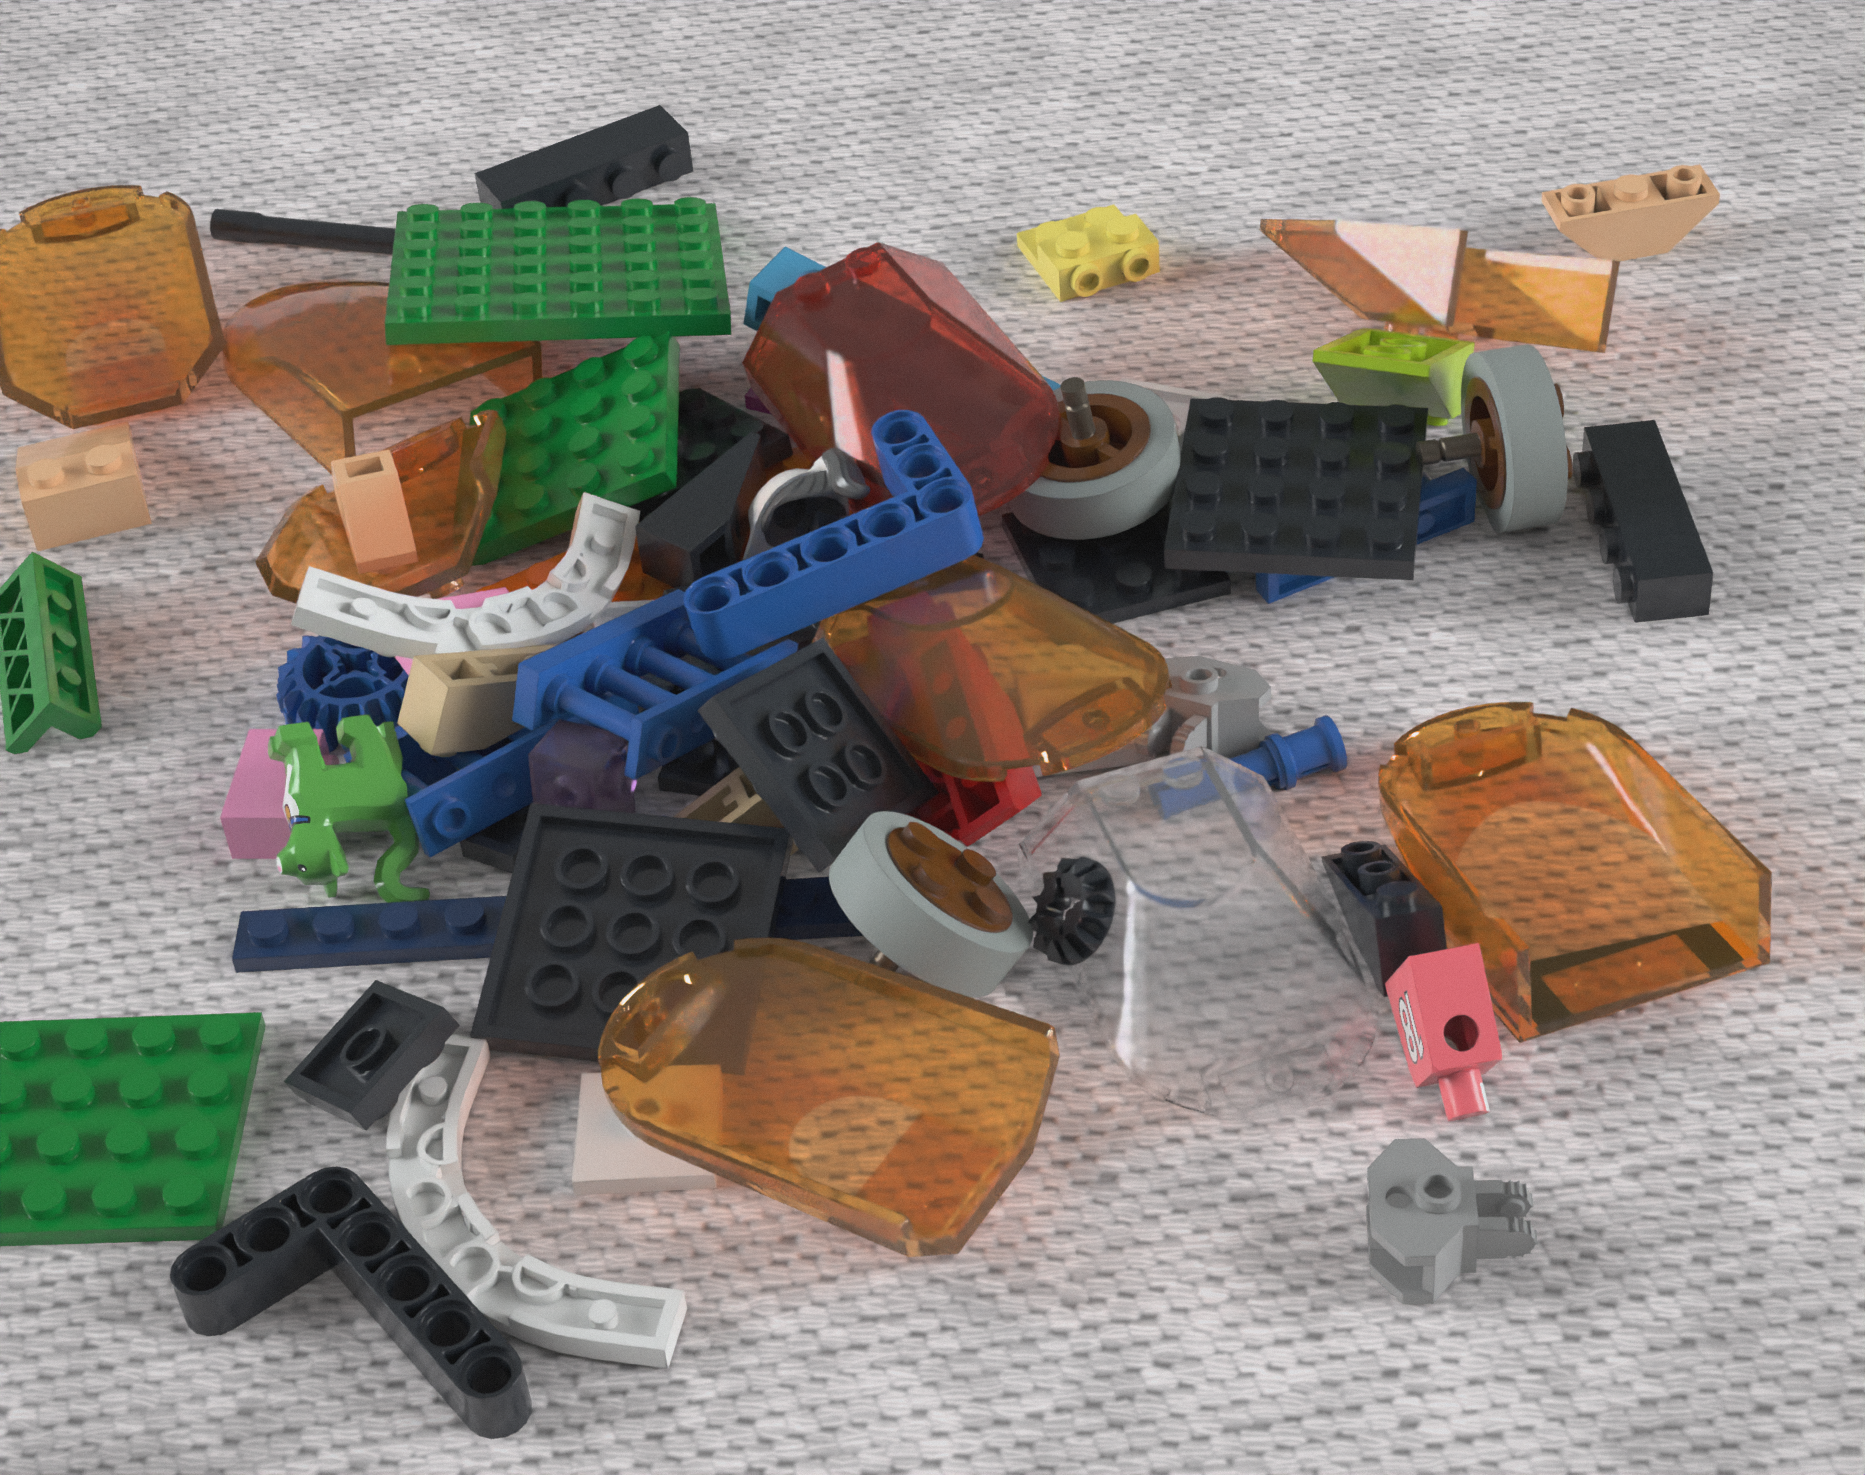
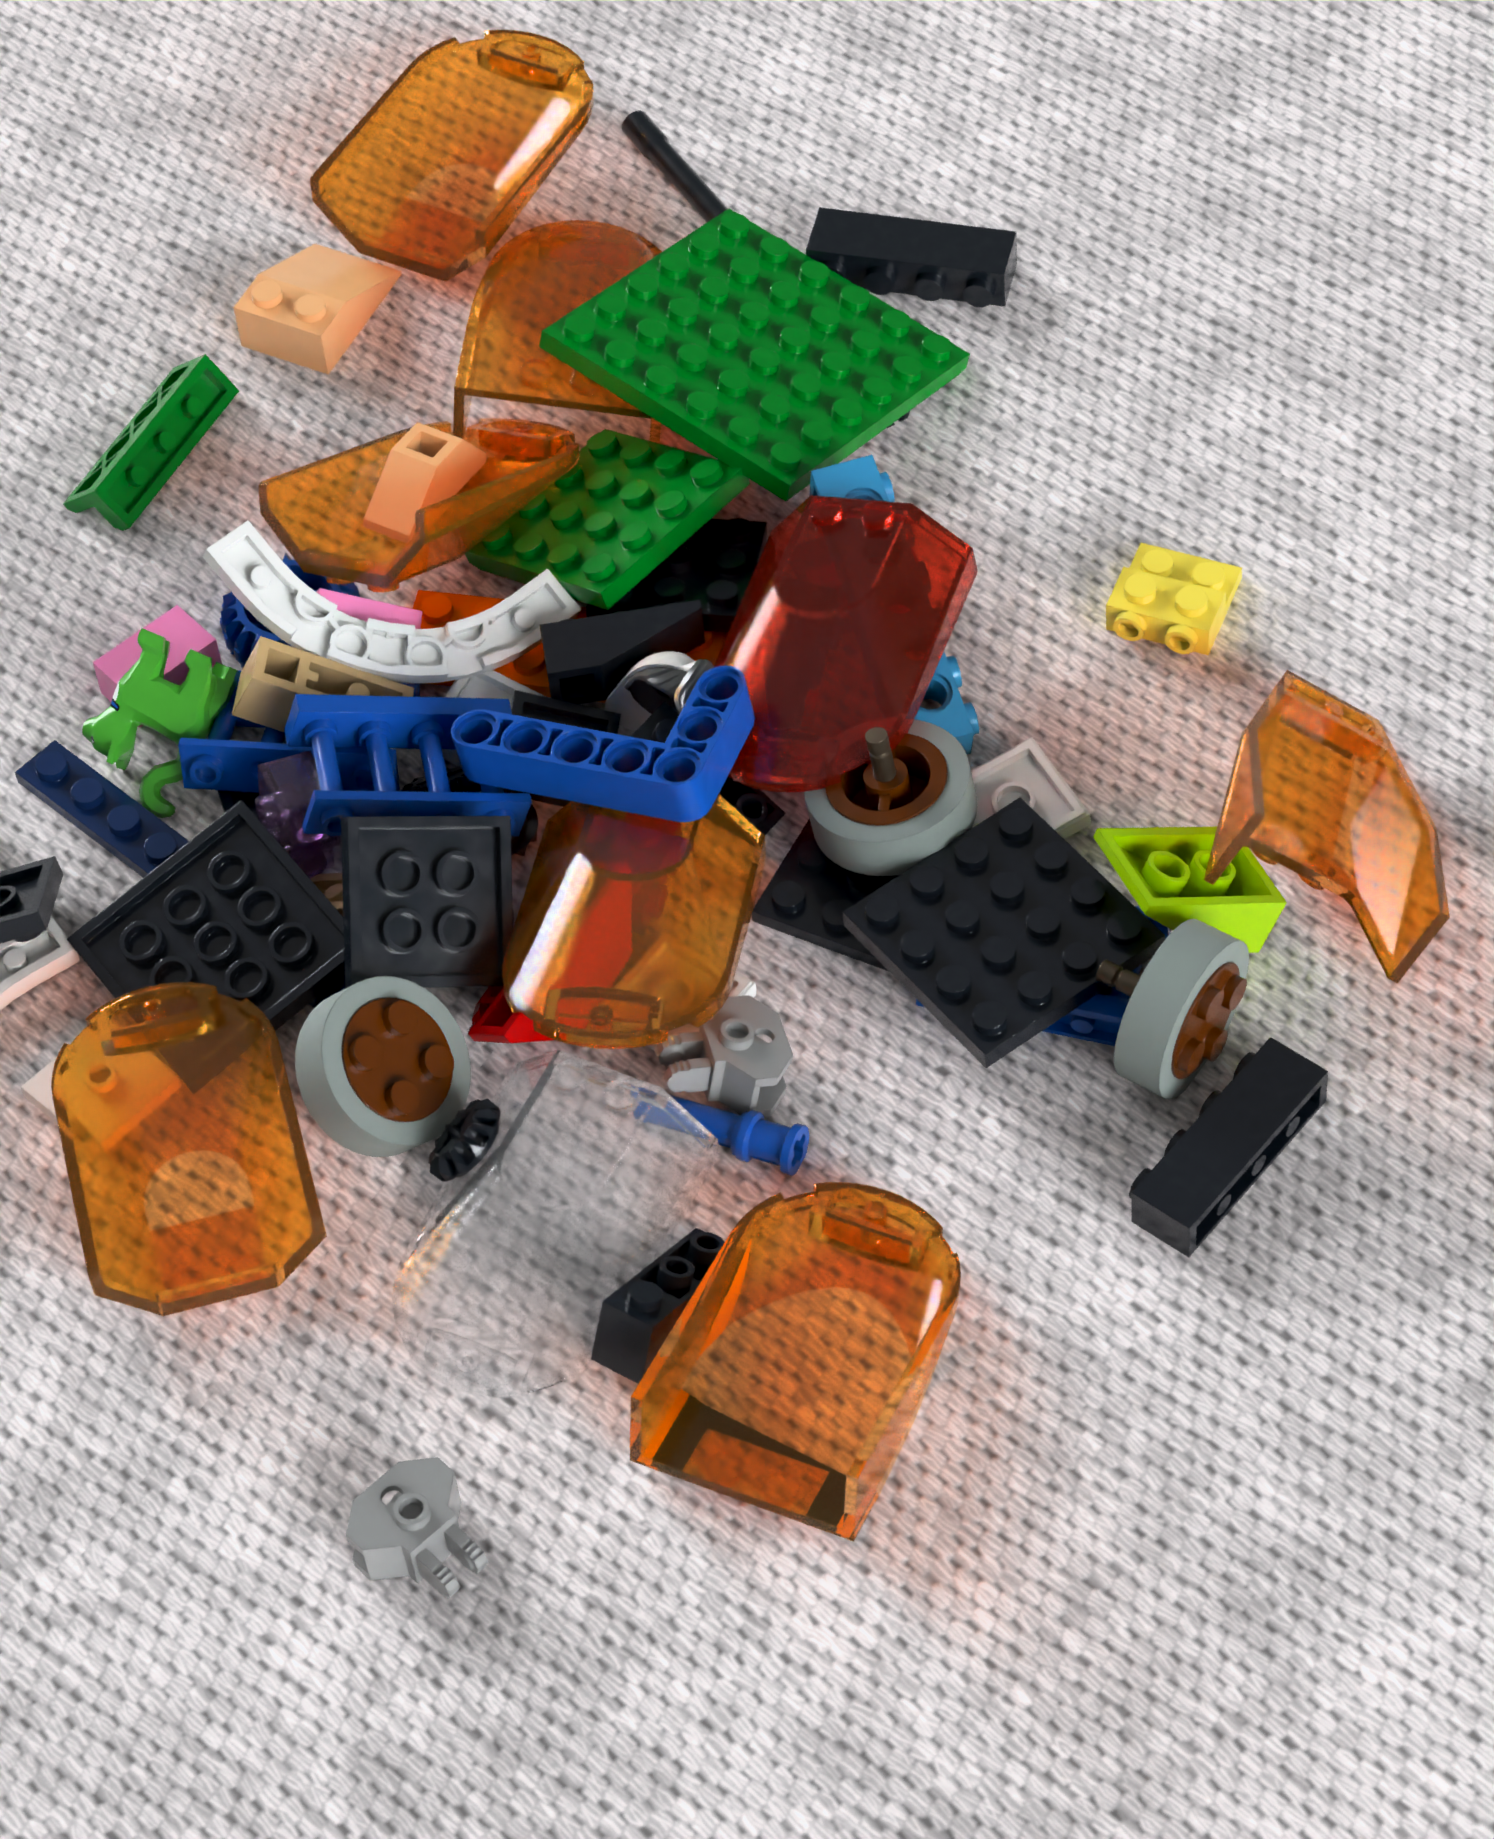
camera: 45 degrees right, 10 degrees up
(1448, 998) = (574, 1410): coral torso -> none

